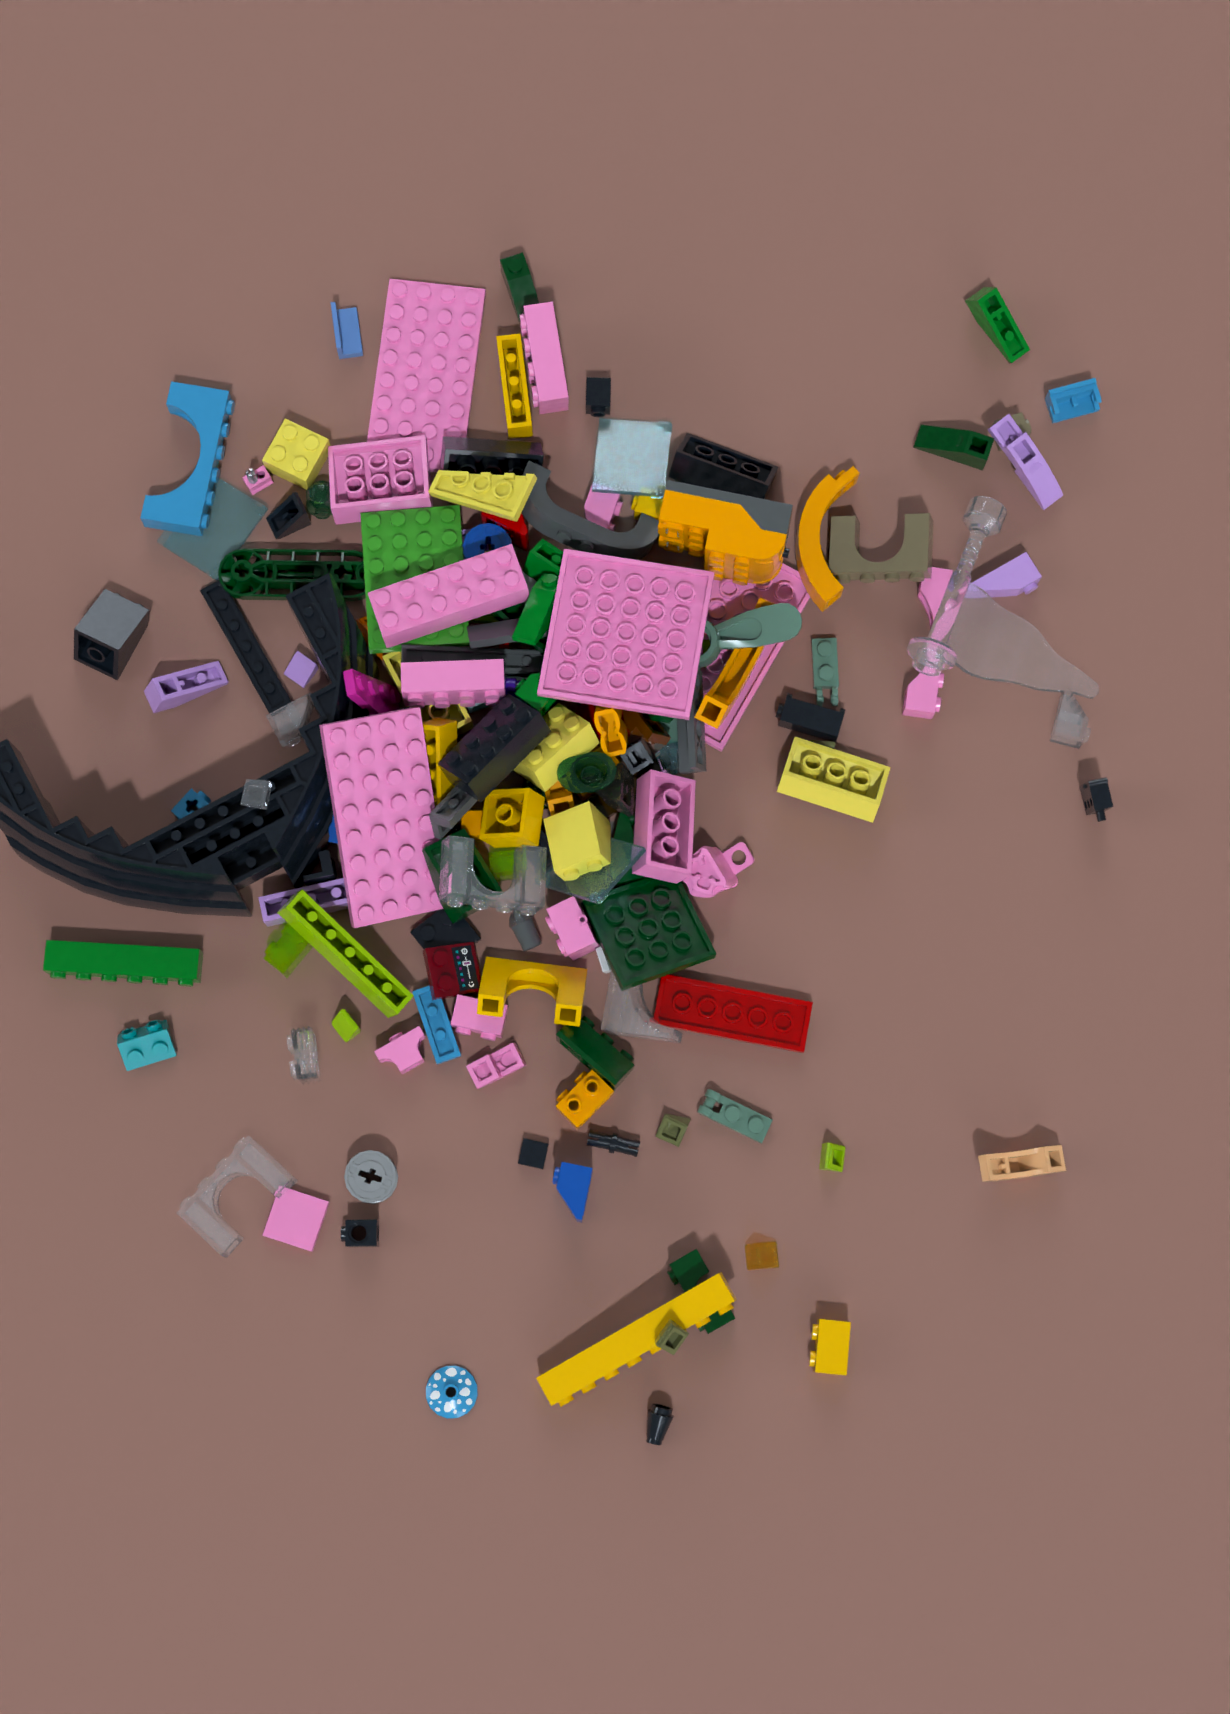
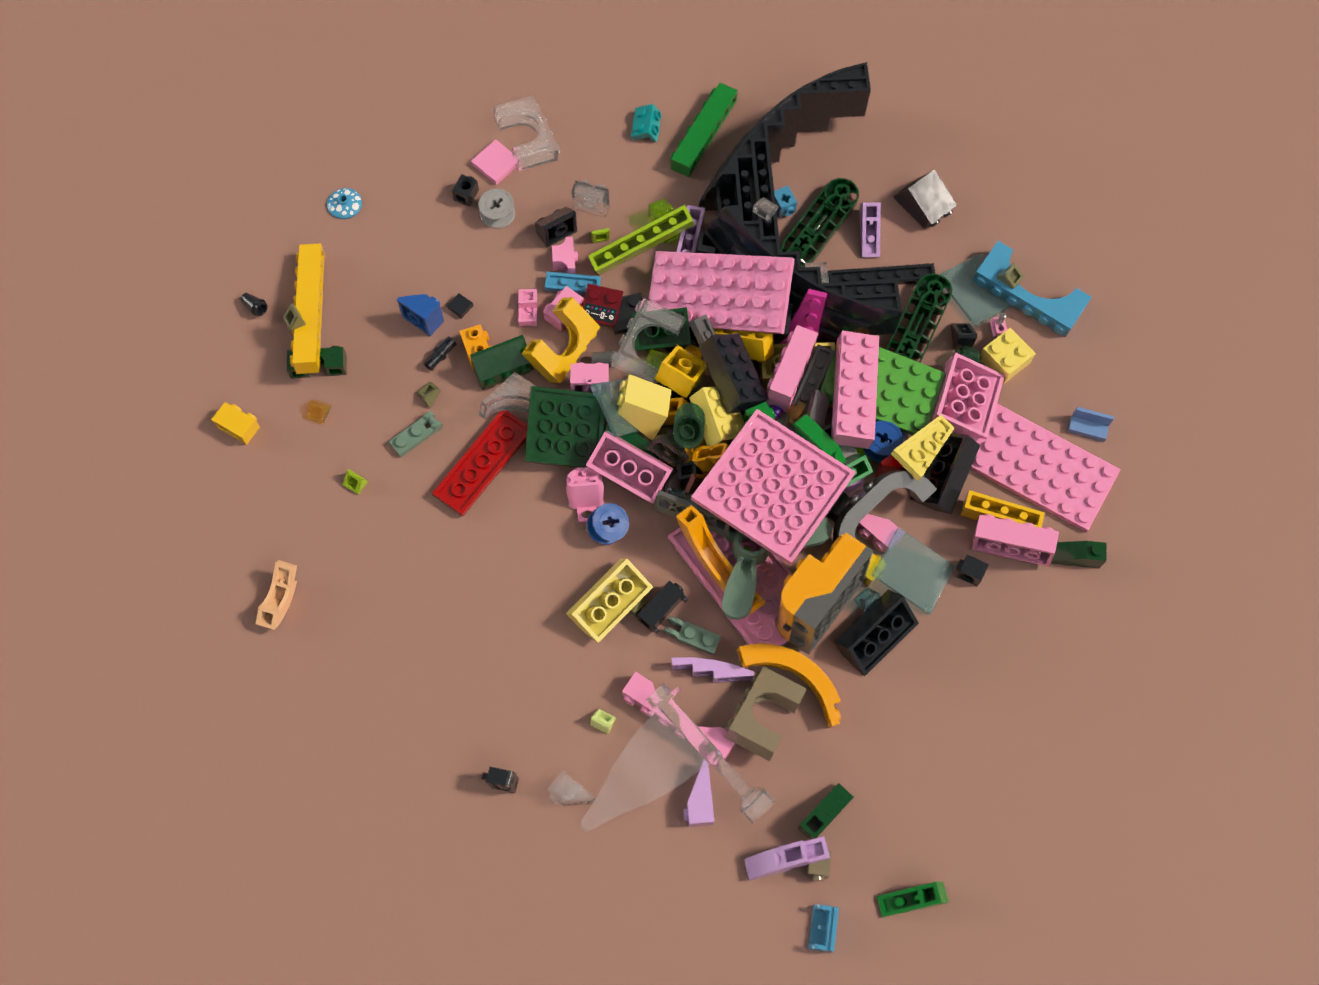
camera: 115 degrees right, 10 degrees down
(189, 483) = (1011, 276): none -> olive slope
(230, 753) = (832, 204): none -> dark green beam
(363, 1084) = (556, 226): none -> black slope
(509, 655) = (796, 411): none -> clear orange plate
(743, 823) = (605, 533): none -> piece
(854, 623) = (719, 670): none -> lavender slope
(971, 724) = (602, 721): none -> yellowish green slope

